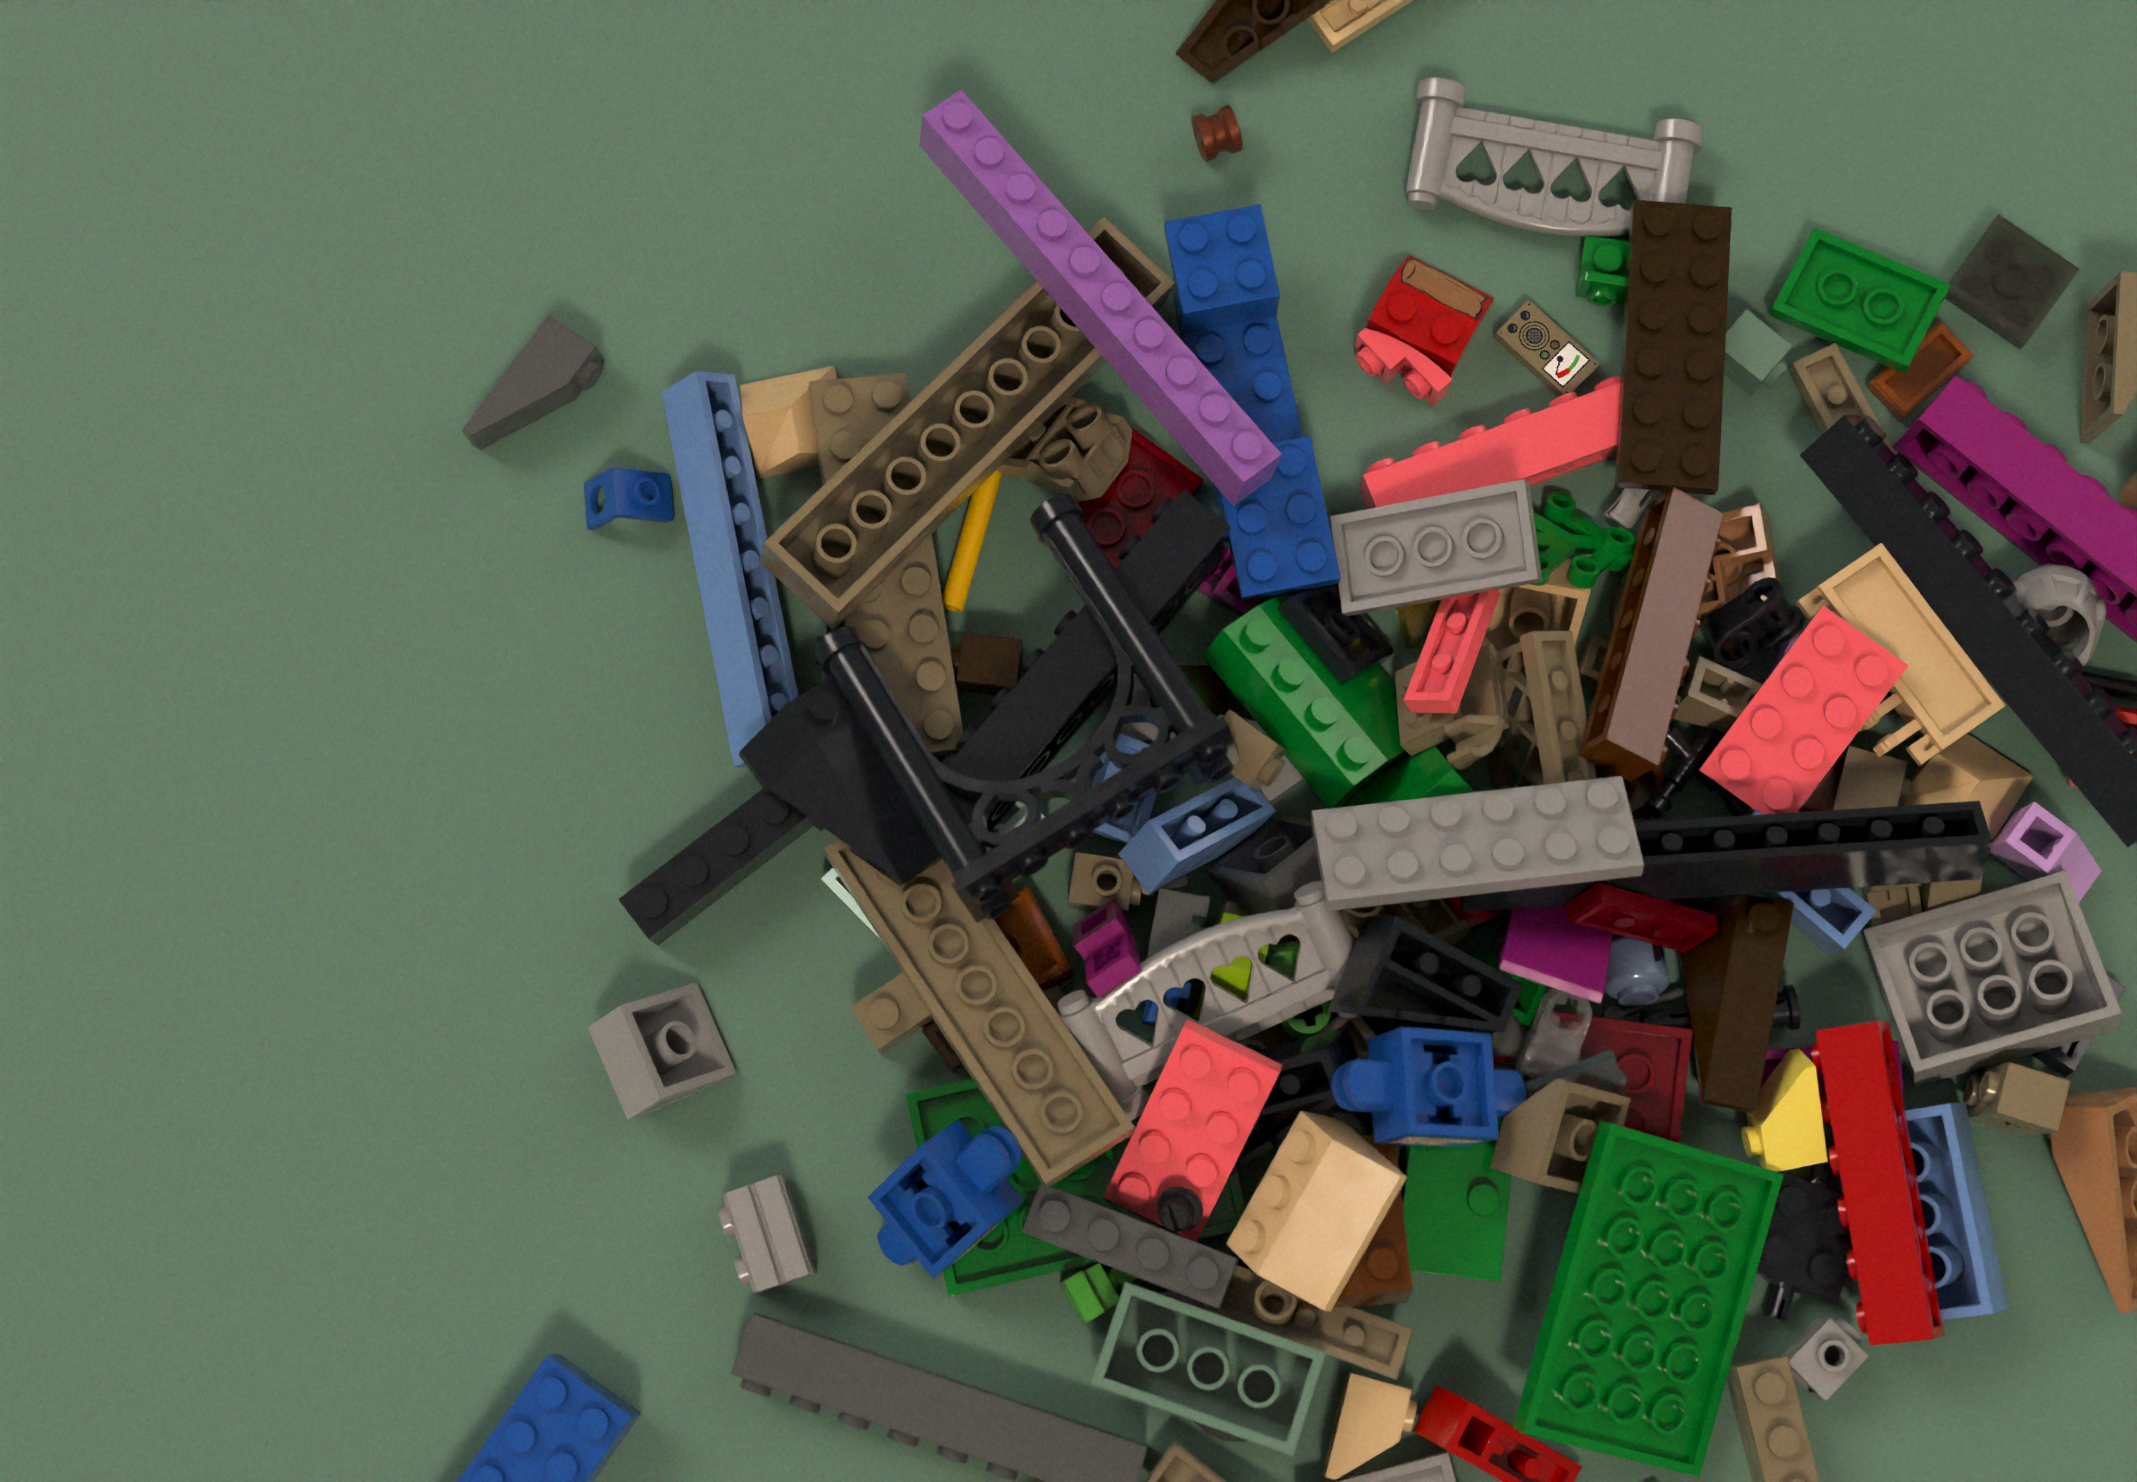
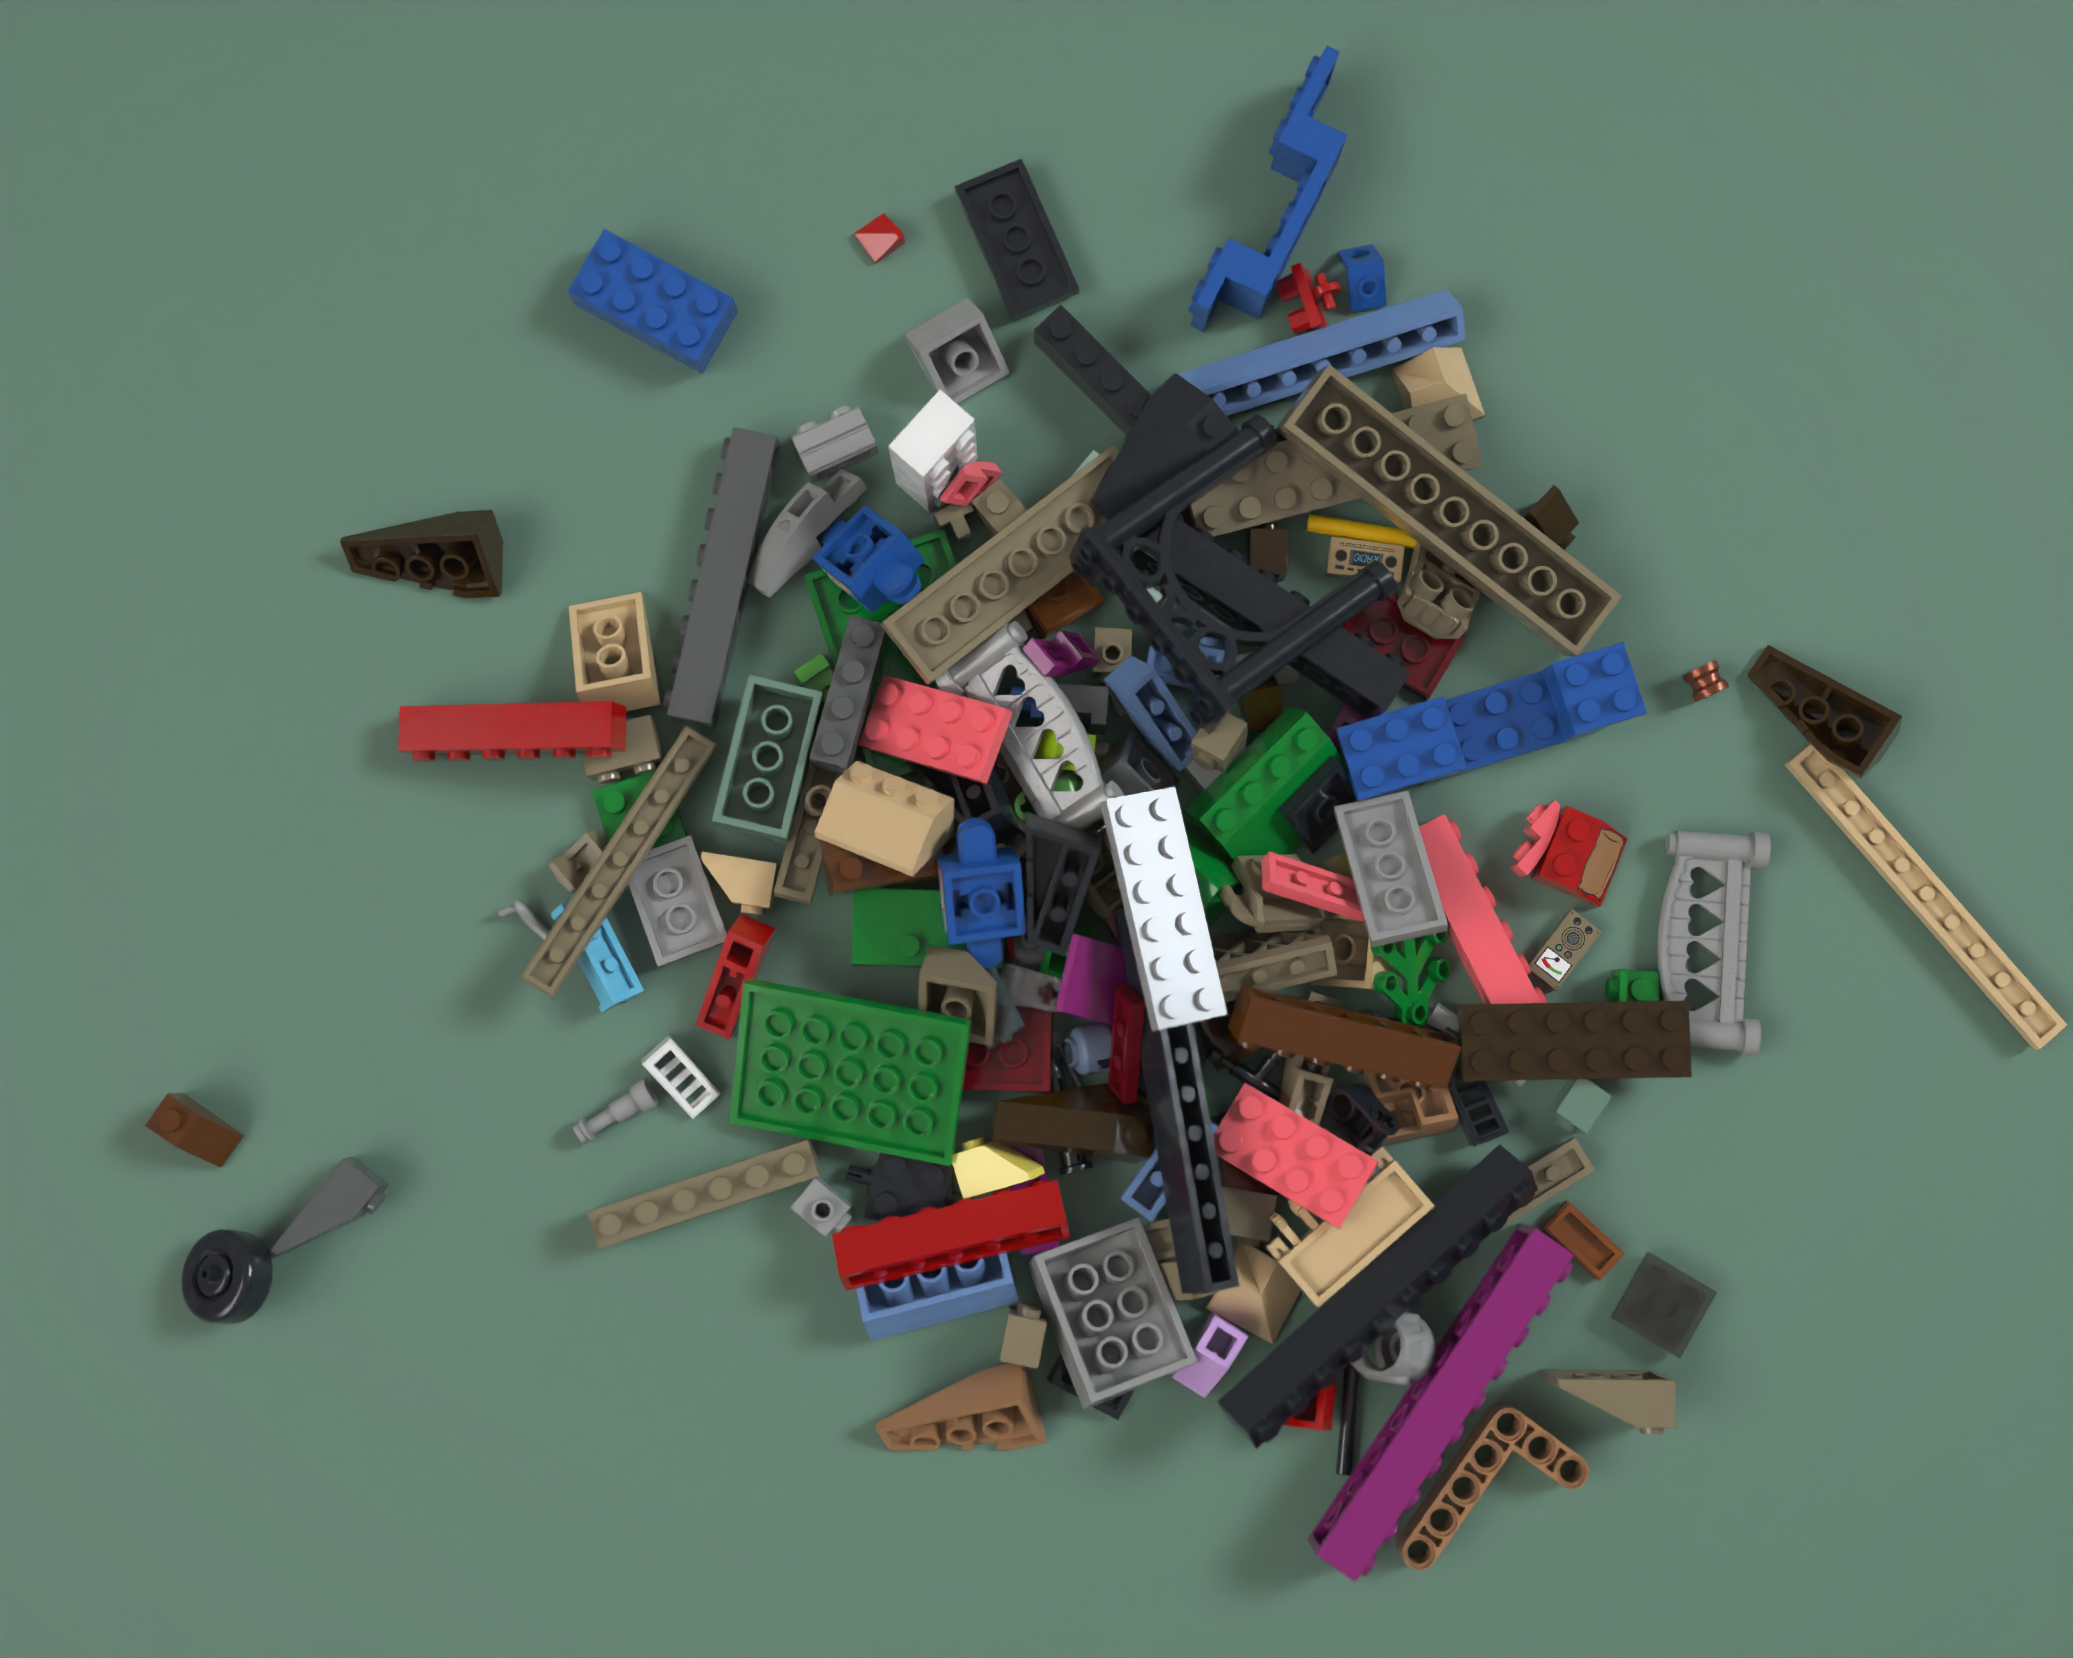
camera: 75 degrees right, 5 degrees up
(457, 546) = (1303, 152): none -> blue bracket
(482, 1141) = (880, 237): none -> slope
(513, 952) = (1017, 239): none -> black plate
(539, 381) = (1446, 200): dark grey slope -> none
(628, 580) = (1300, 285): none -> red hips
(801, 1082) = (933, 450): none -> white brick
(852, 1048) = (971, 482): none -> coral slope
(890, 1303) = (793, 535): none -> light grey slope
(894, 1076) = (955, 518): none -> dark tan tile
(986, 294) = (1554, 518): none -> dark brown slope
(1008, 541) = (1350, 555): none -> tan tile
(1098, 298) = (1553, 592): medium lavender brick -> none
(1179, 1209) = (877, 725): black piece -> none
(1780, 471) = (1499, 1126): none -> black slope
(1860, 300) = (1632, 1187): green plate -> none

